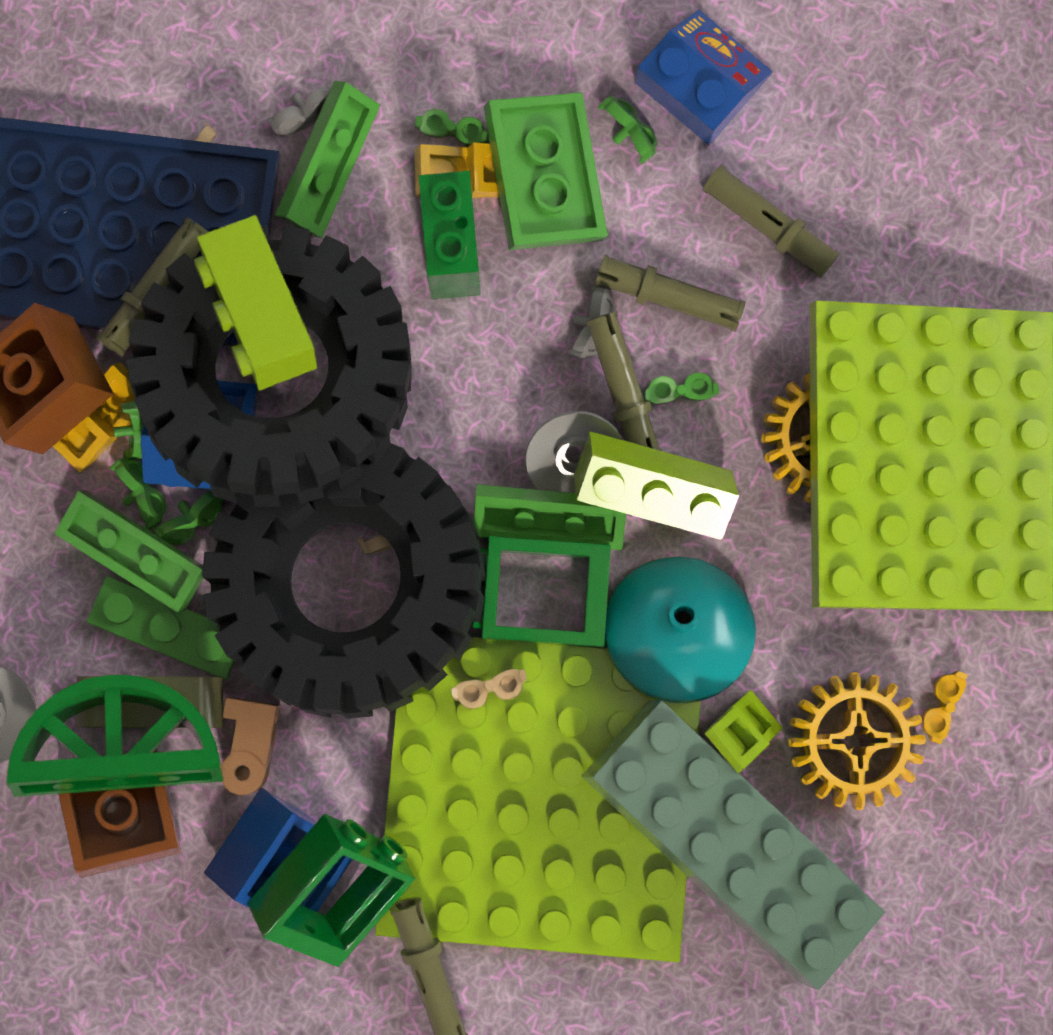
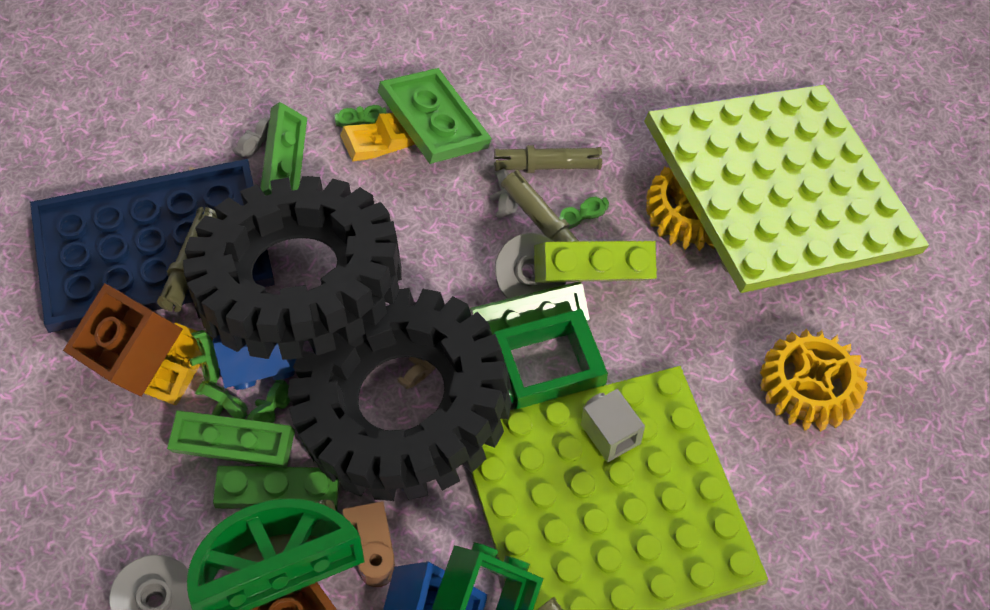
camera: 20 degrees left, 25 degrees down
(254, 303) = (270, 215): lime brick -> none
(449, 235) = (387, 159): green window -> none
(474, 693) = (547, 428): tan piece -> none
(577, 715) = (612, 424): none -> light grey brick
(639, 132) = (478, 78): bright green piece -> none
(674, 658) = (655, 353): teal dish -> none
(701, 75) = (508, 41): blue slope -> none
(733, 844) = (768, 471): sand green brick -> none
(743, 731) = (733, 393): lime slope -> none
(771, 221) = (594, 100): olive pin -> none
(948, 691) = (857, 331): yellow piece -> none

